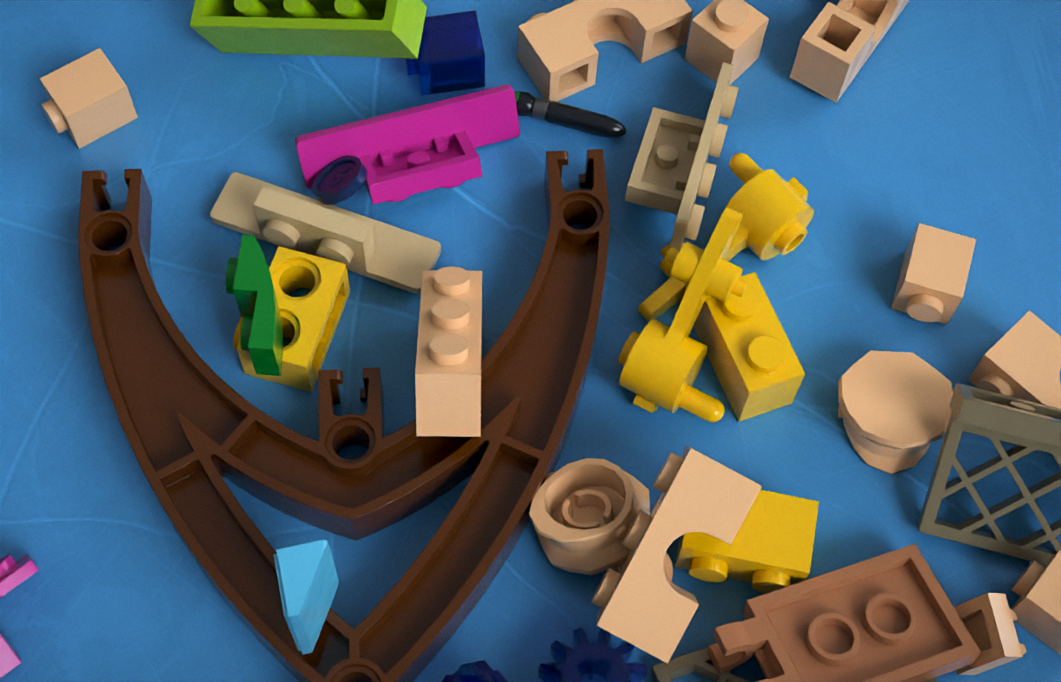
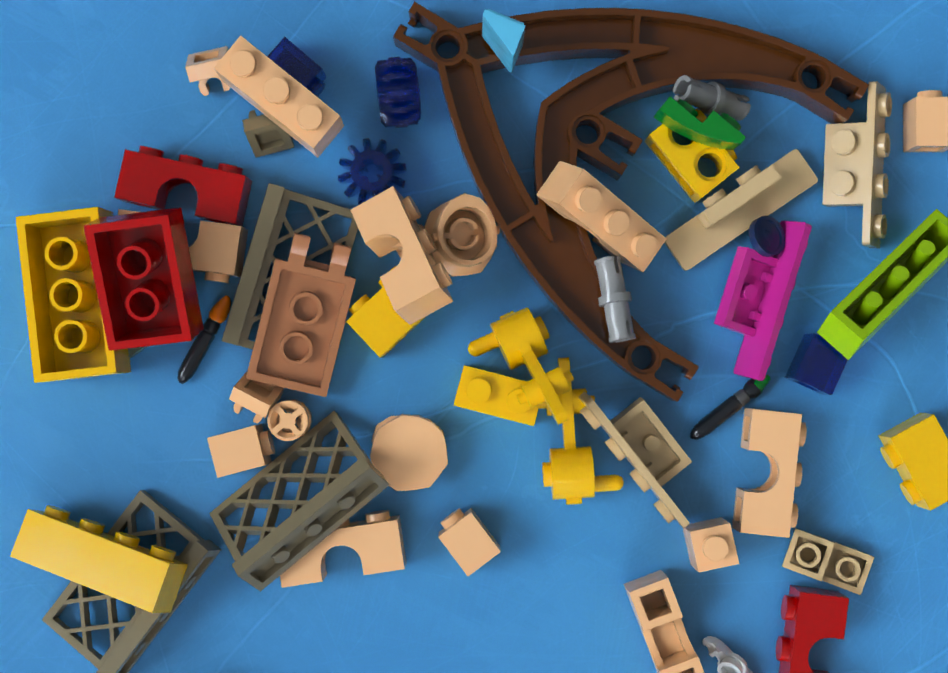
camera: 130 degrees right, 25 degrees up
(189, 147) = (856, 162): none -> tan bracket
(211, 331) = (711, 97): none -> light grey pin
(540, 273) = (614, 299): none -> light grey pin
(987, 561) = (283, 424): none -> light nougat wheel

